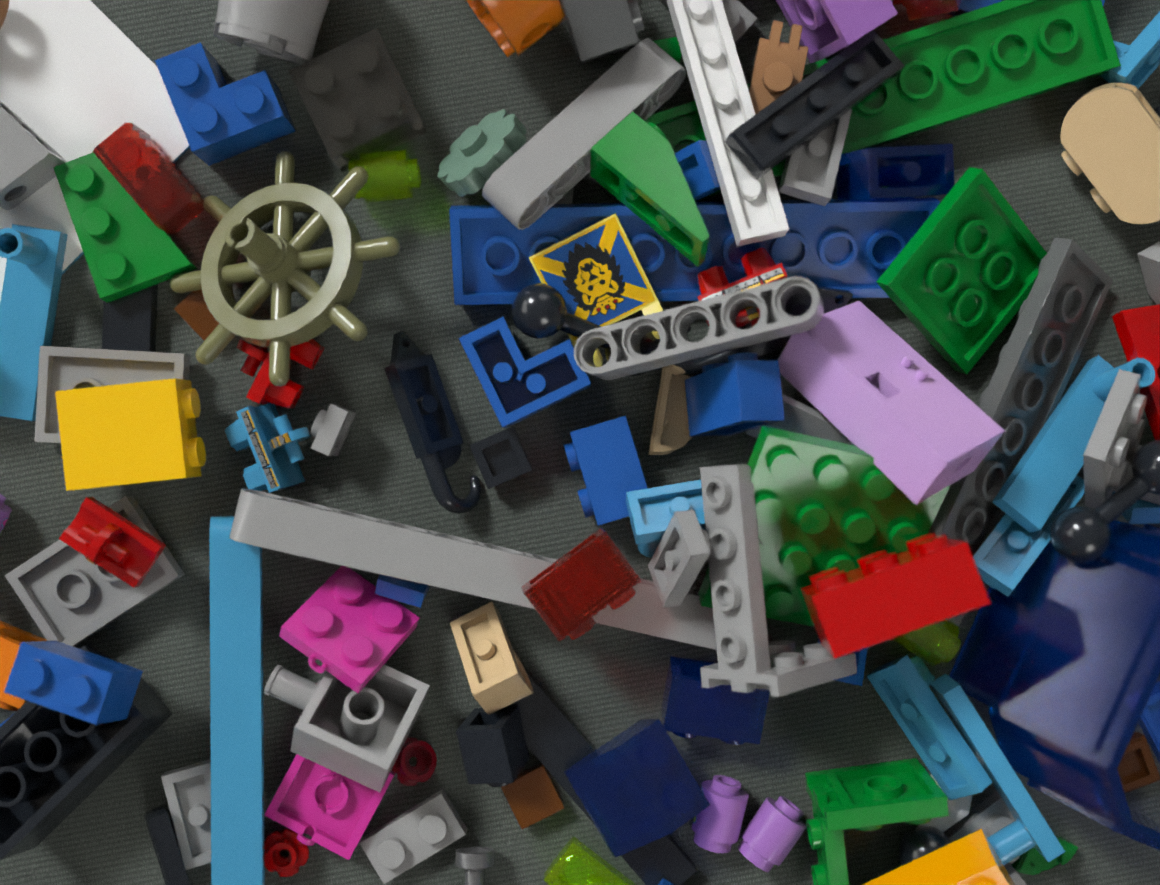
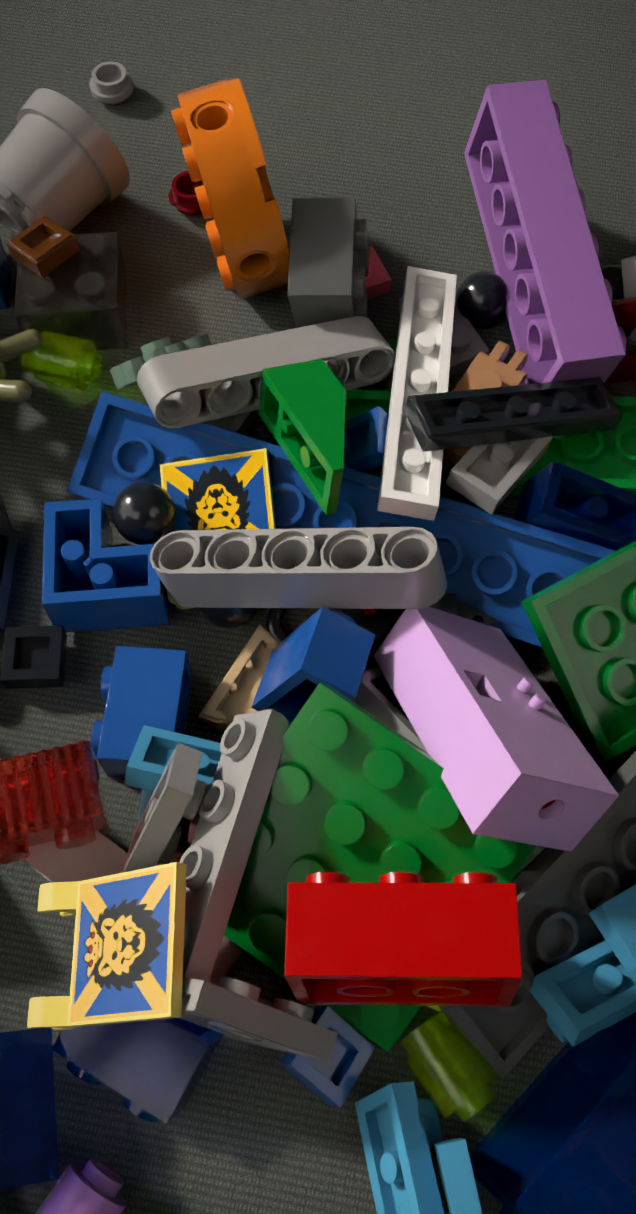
camera: 20 degrees right, 25 degrees down
(324, 78) = (43, 246): none -> reddish brown tile
(700, 664) = (123, 948): none -> flag

